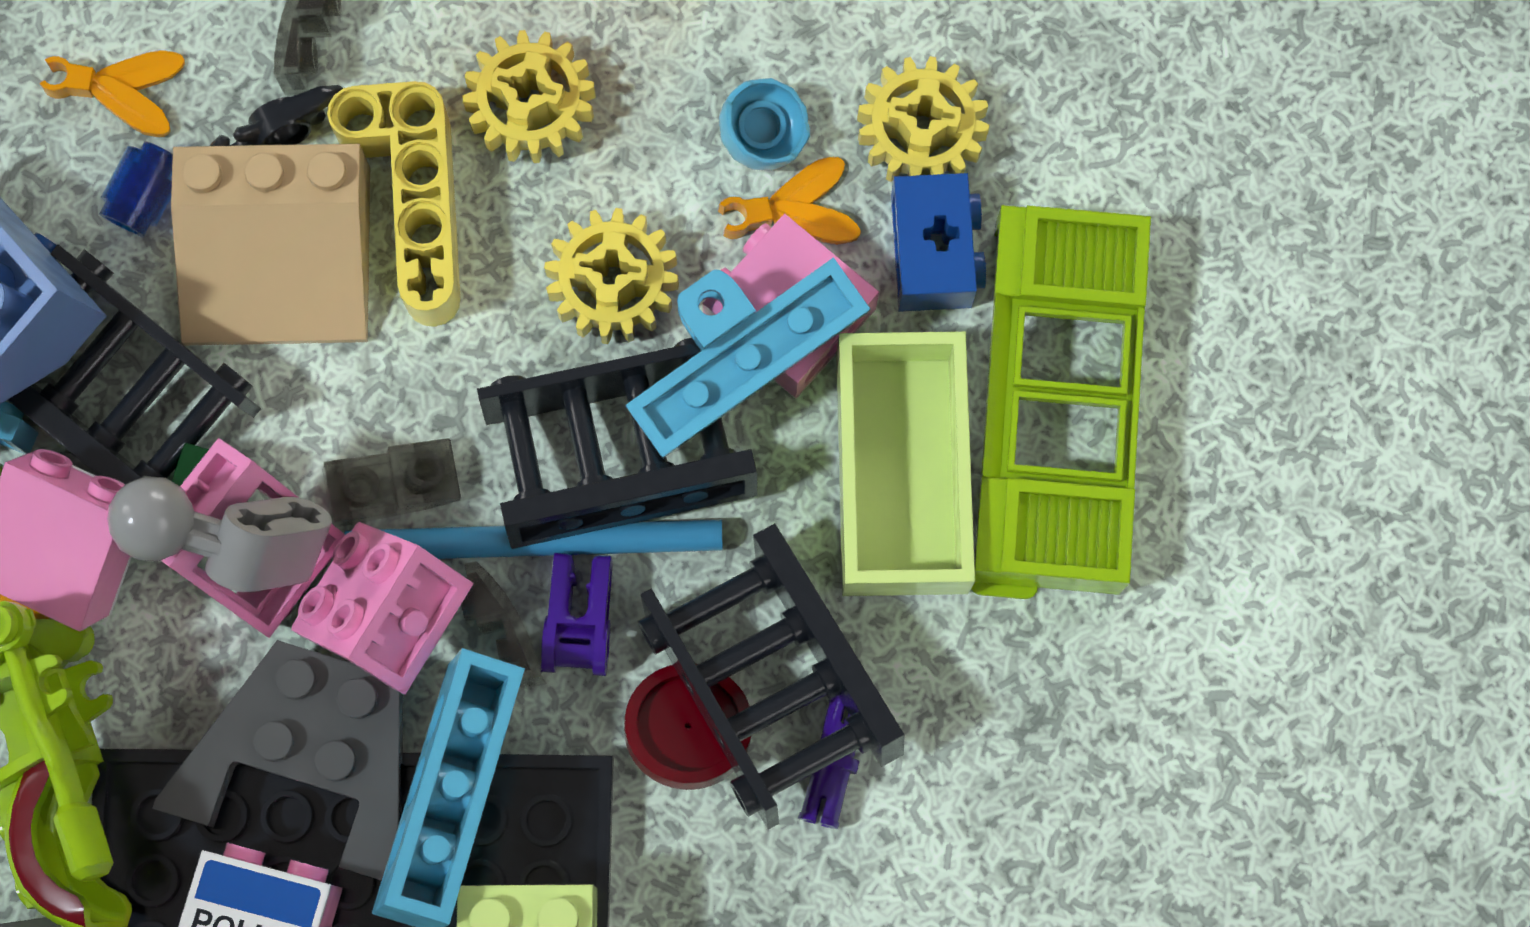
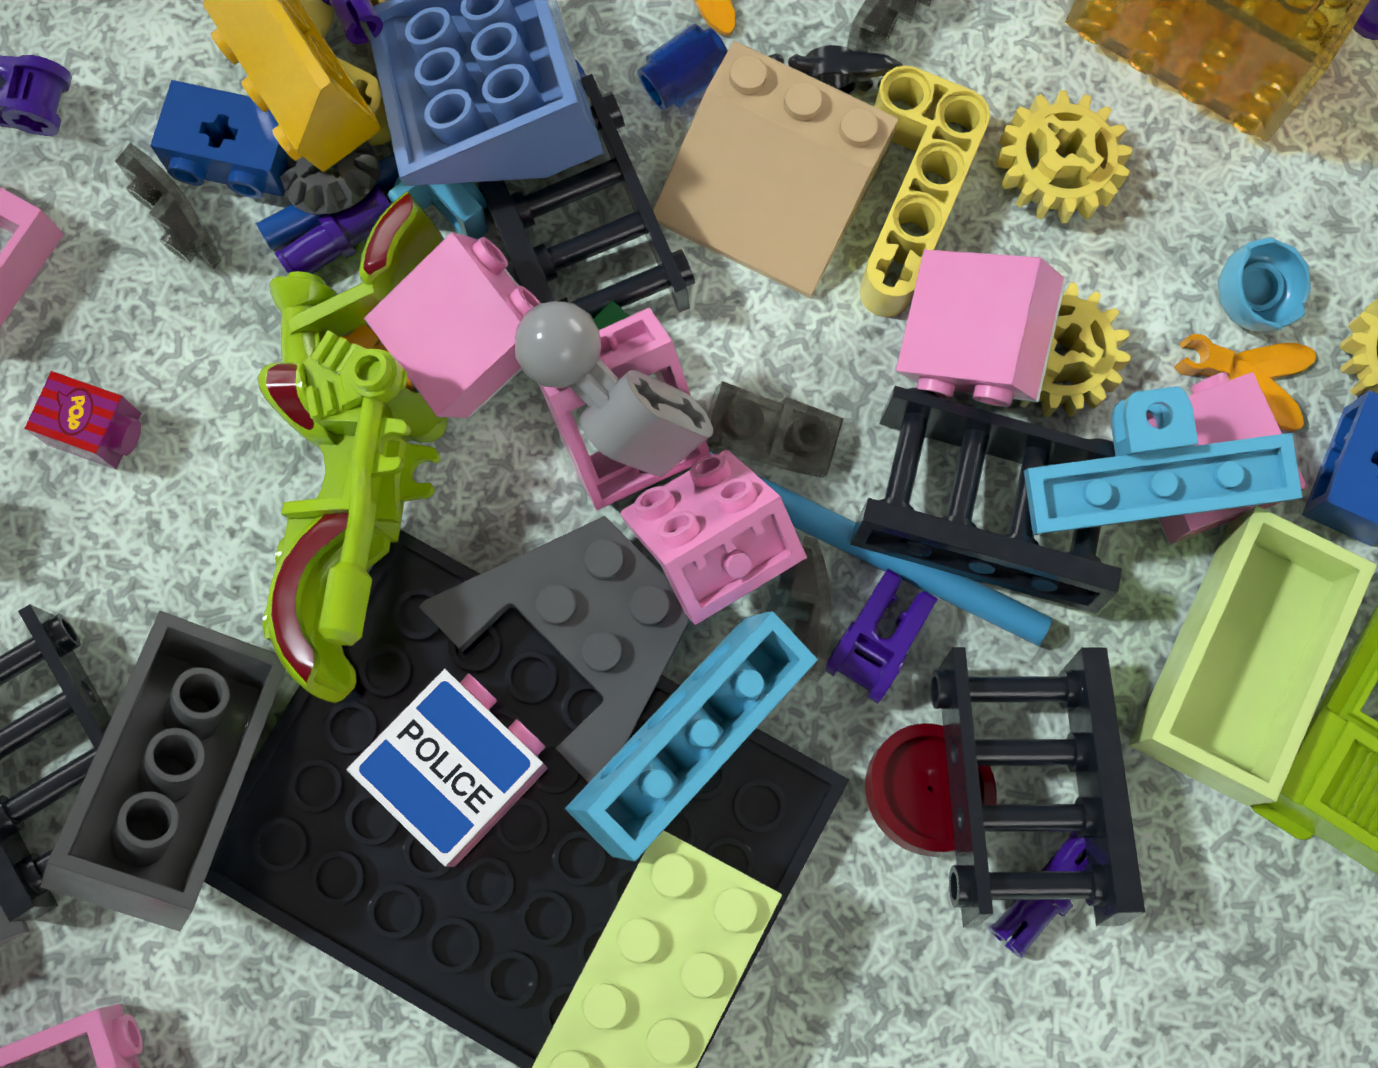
camera: 25 degrees right, 0 degrees up
(526, 296) = (981, 325): none -> bright pink piece

